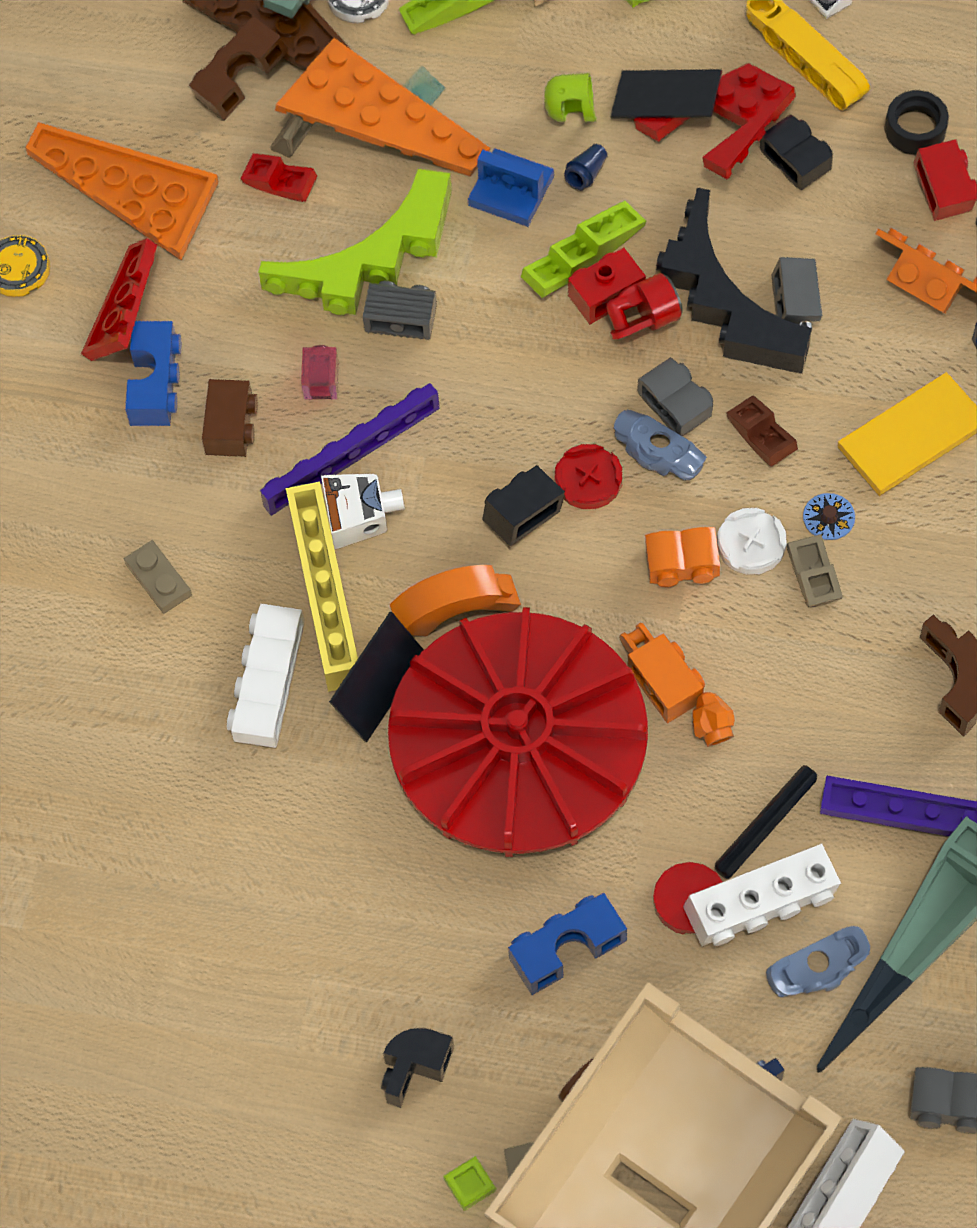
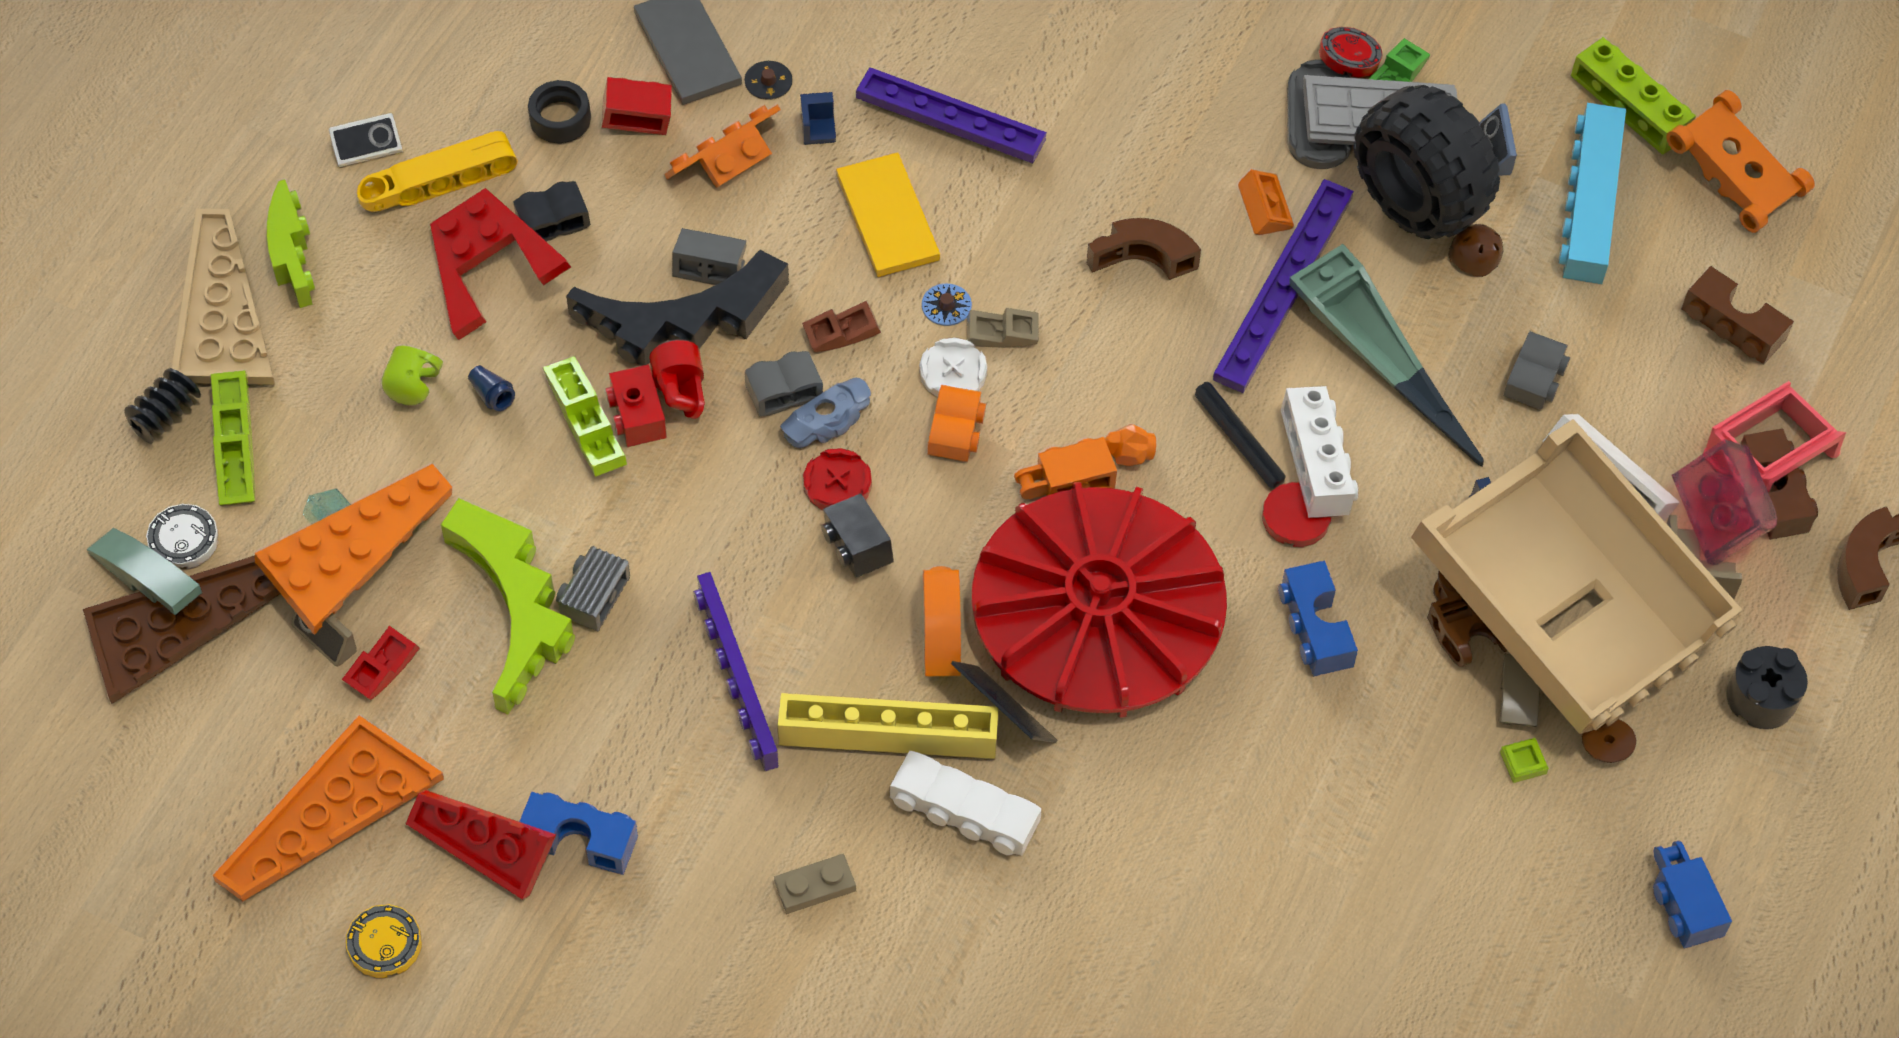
camera: 80 degrees left, 5 degrees down
(228, 417) = (659, 772): reddish brown brick -> none
(251, 46) = (248, 689): reddish brown arch -> none
(320, 372) = (637, 676): clear pink brick -> none
(357, 507) = (803, 672): white torso -> none
(414, 1052) = (1396, 774): black brick -> none
(509, 186) = (484, 458): blue bracket -> none
(666, 93) = (437, 297): black window -> none
(844, 951) = (1380, 410): sand blue piece -> none

